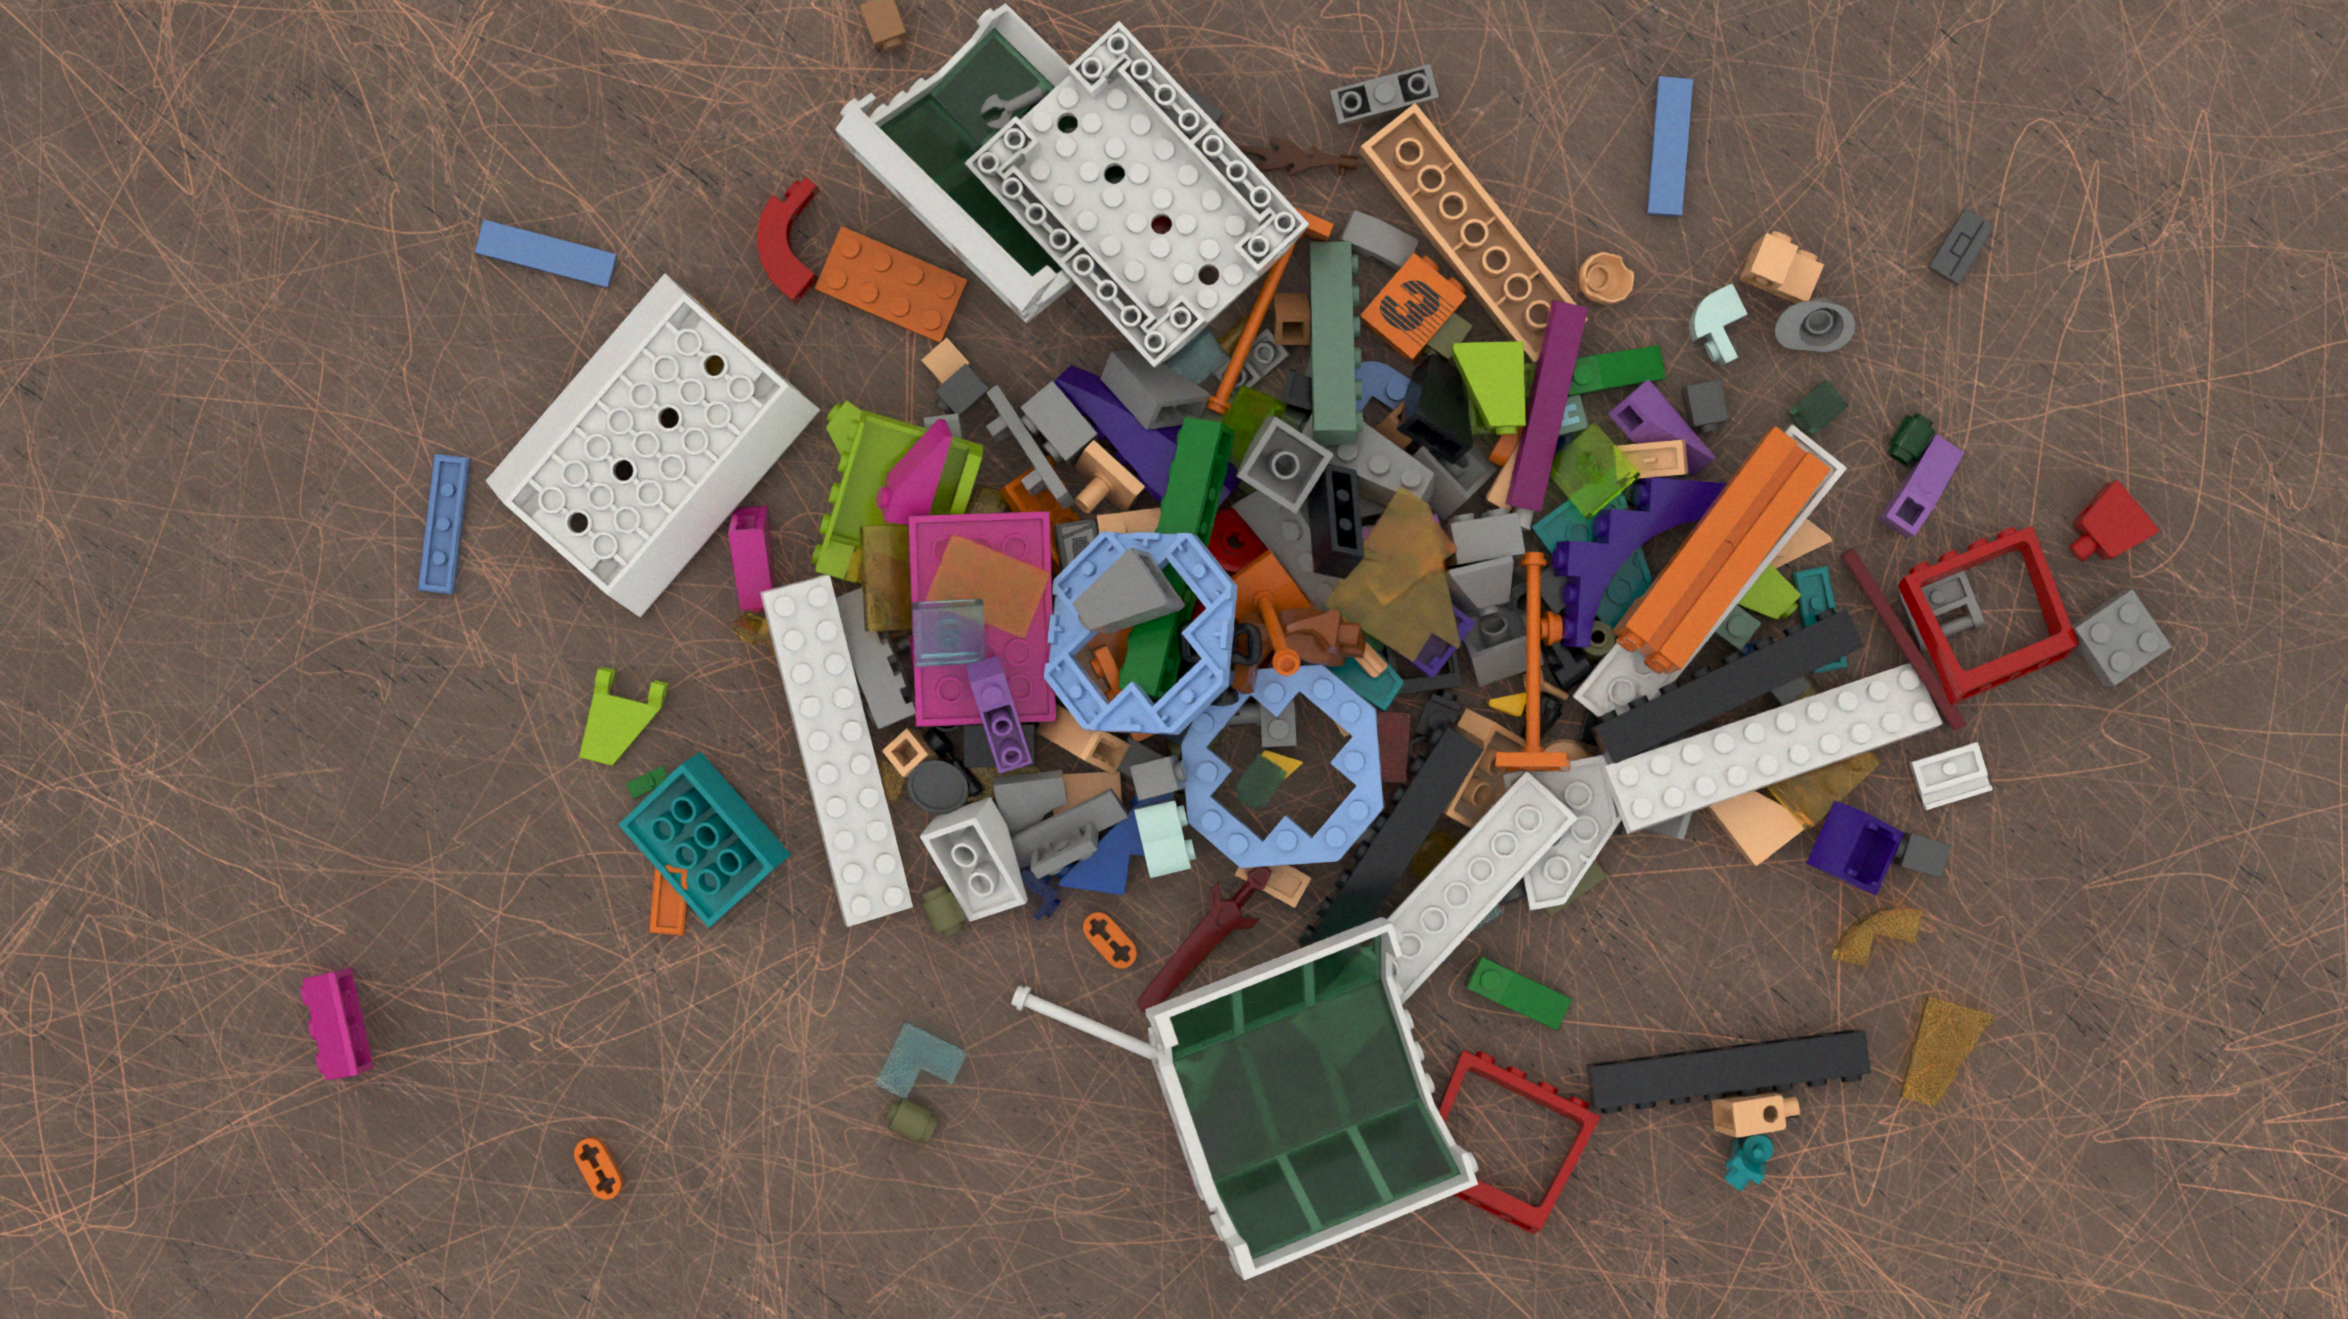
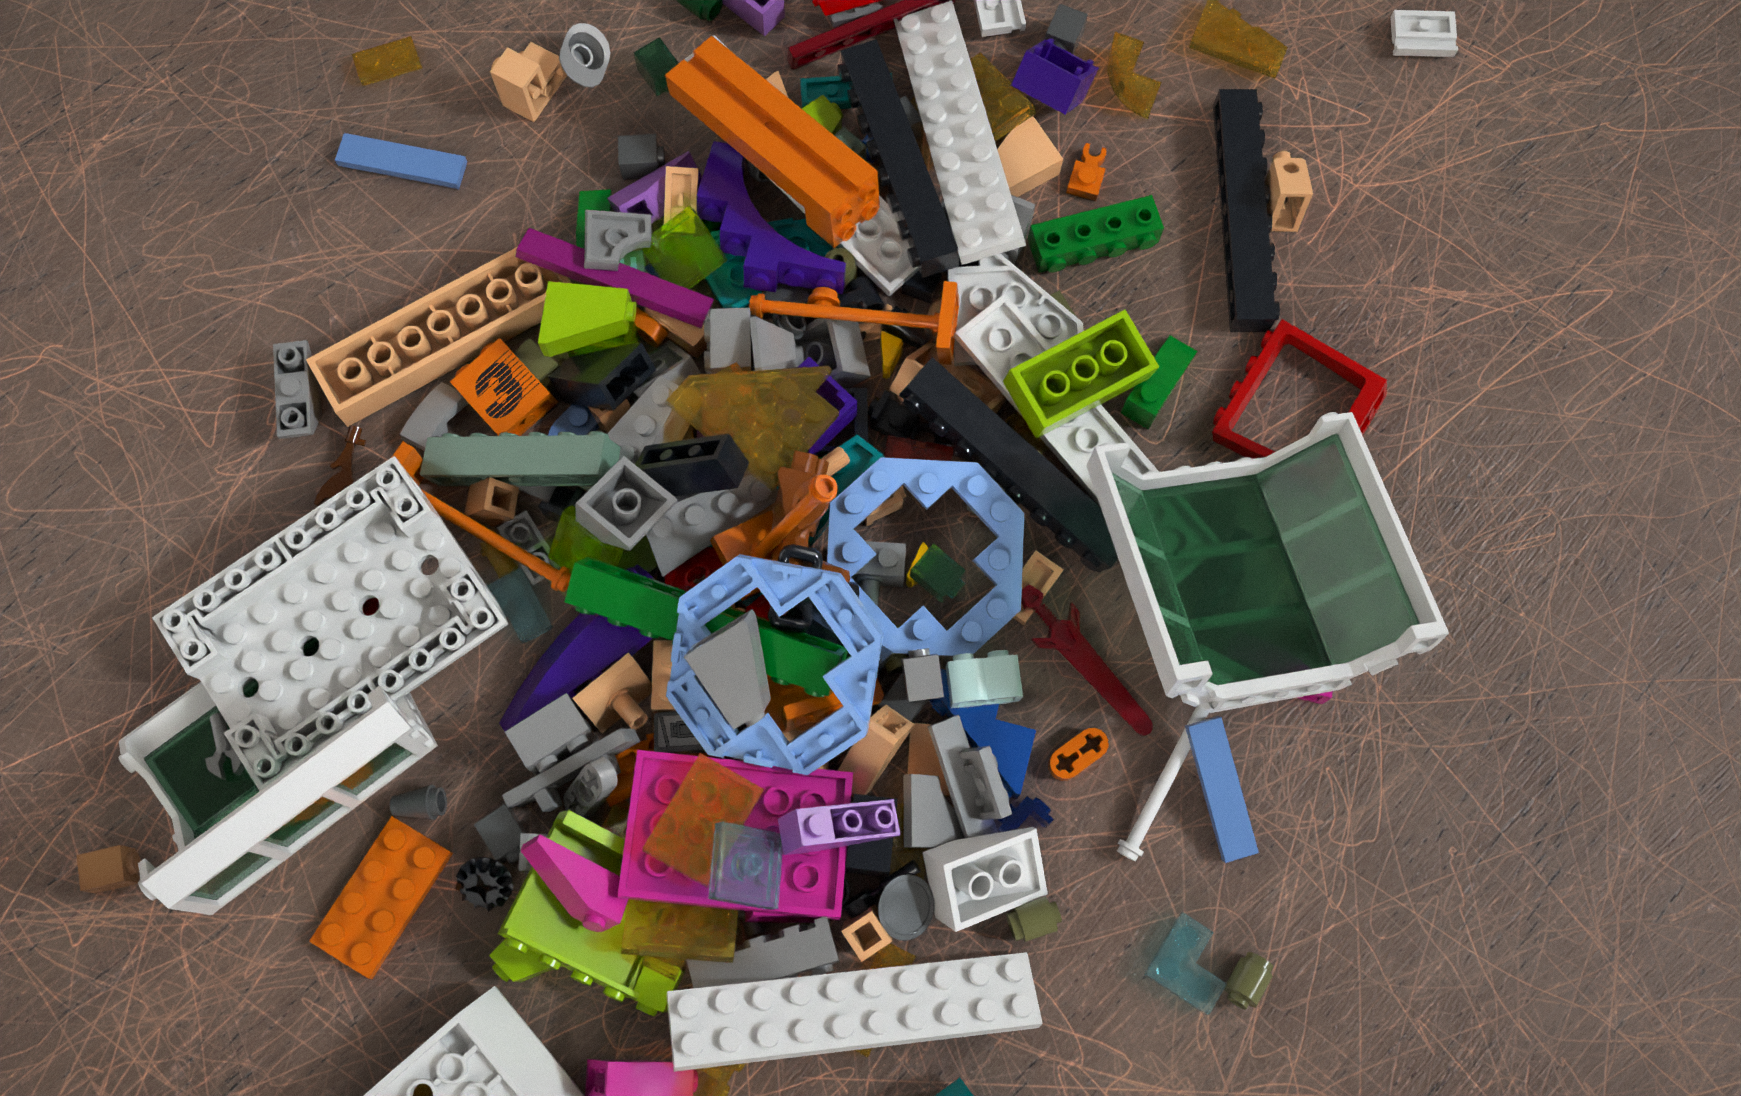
camera: 85 degrees left, 15 degrees down
(774, 240) = (335, 1011): red arch -> none
(922, 389) = (492, 874): none -> black gear
(944, 360) = (468, 846): light nougat tile -> none
(982, 305) = (420, 803): none -> dark grey cone
(1010, 470) = (591, 788): none -> light grey beam
(1089, 1082) = (1221, 789): none -> medium blue tile
(1153, 395) = (534, 641): light grey slope -> none
(1492, 905) = (1080, 373): none -> lime brick
(1593, 395) = (612, 236): none -> light grey tile
(1605, 278) = (509, 223): light nougat hair -> none
(1676, 910) = (1095, 234): none -> green brick
(1710, 319) = (565, 143): light aqua brick -> none
(1748, 895) = (1087, 175): none -> orange plate
(1748, 1160) = (1331, 199): teal hips -> none
(1790, 106) = (386, 61): none -> clear yellow plate
(1977, 1260) = (1424, 33): none -> white plate

